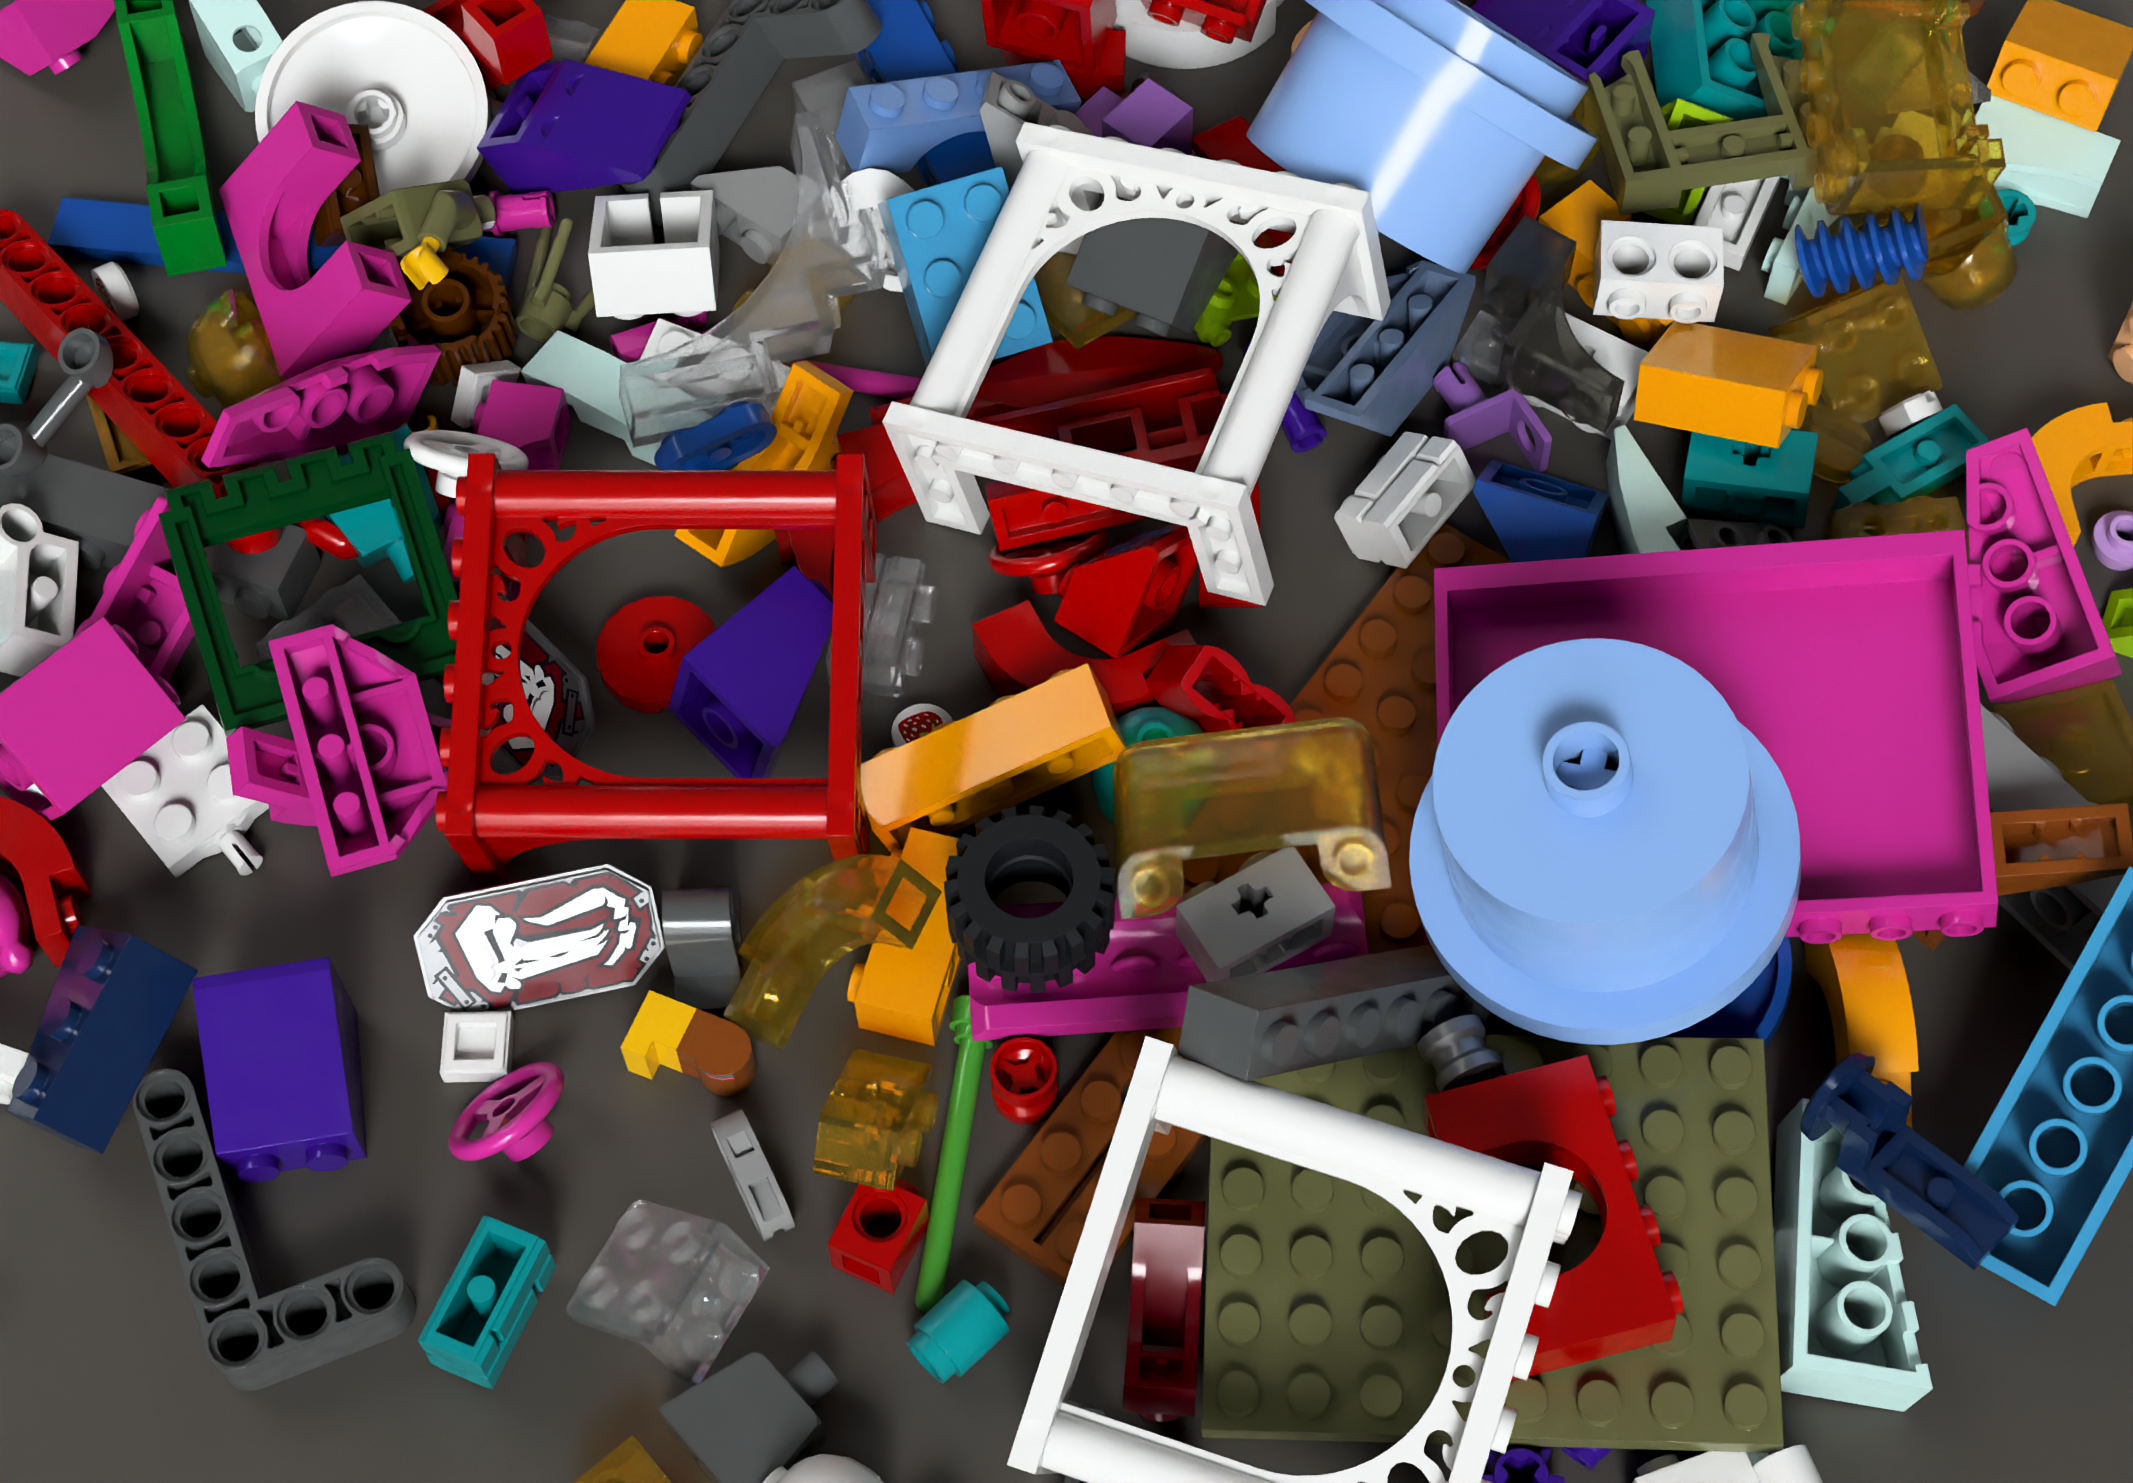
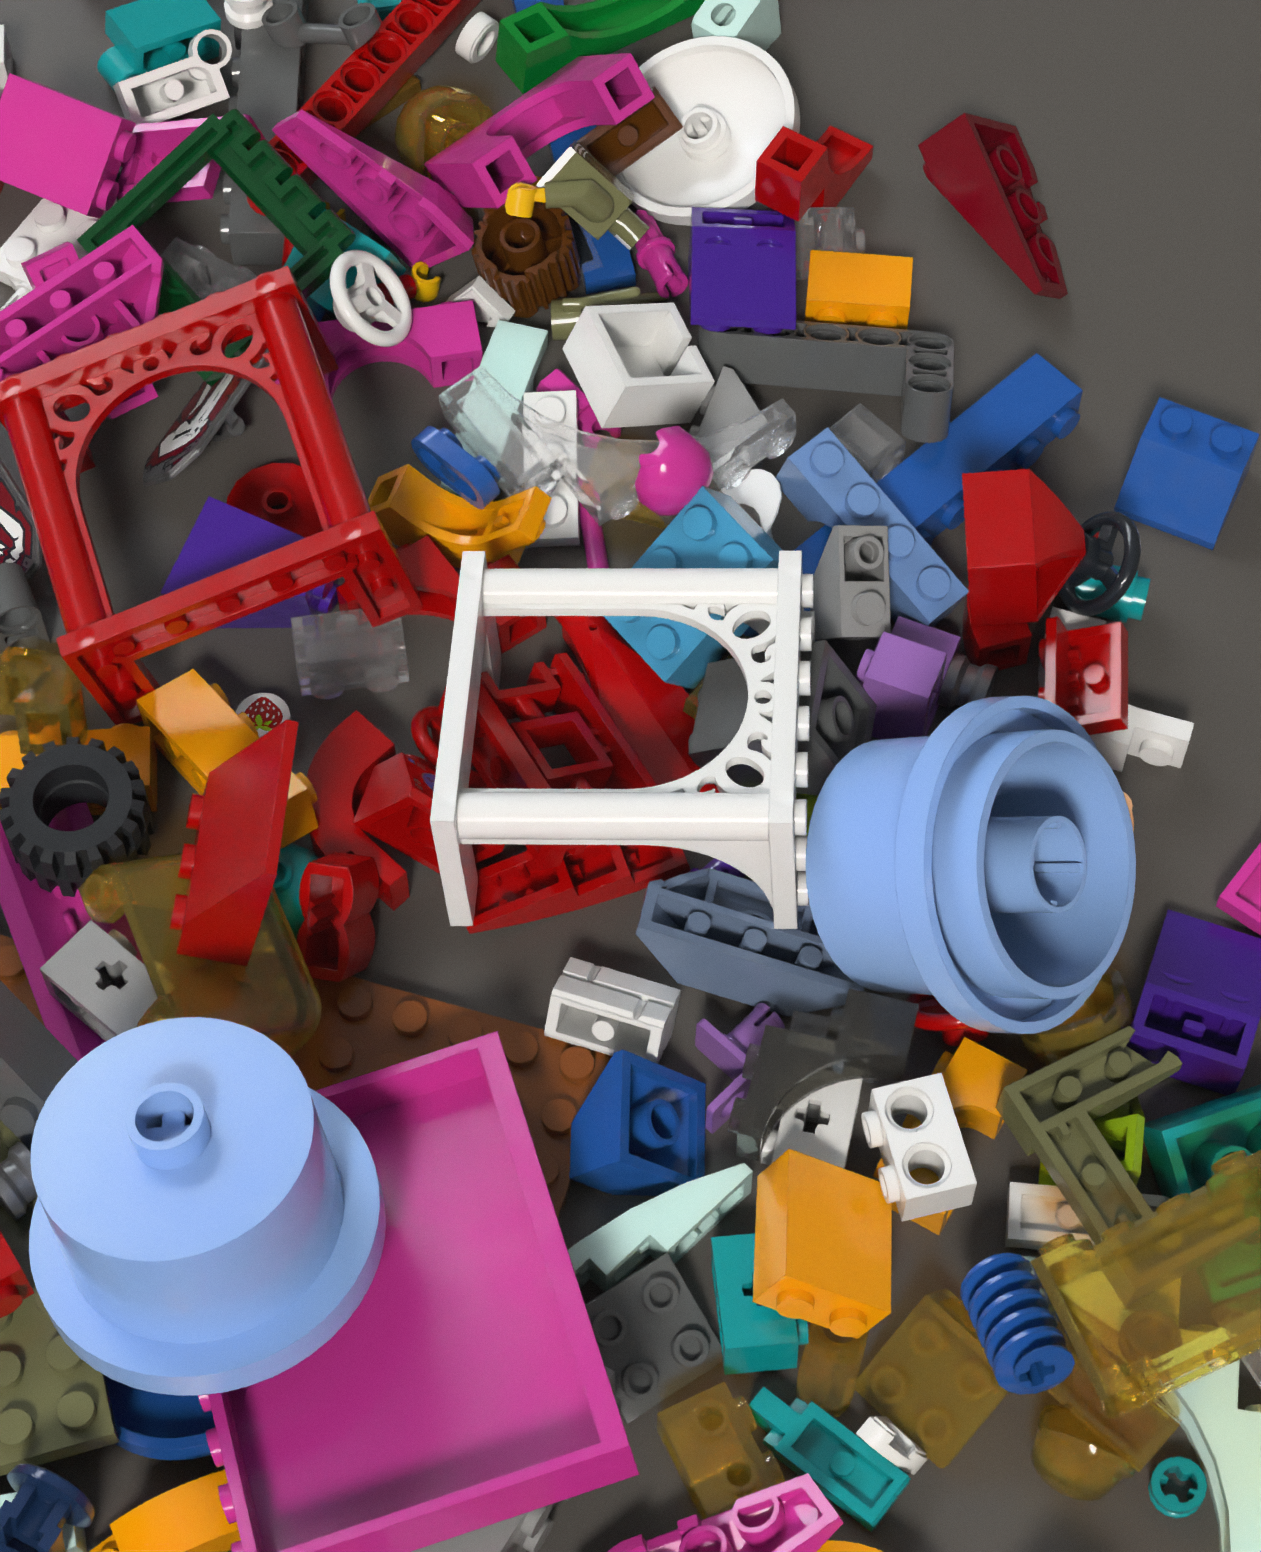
camera: 70 degrees right, 0 degrees up
(861, 216) = (673, 472): none -> dark pink hair
(1192, 689) = (234, 850): none -> red slope

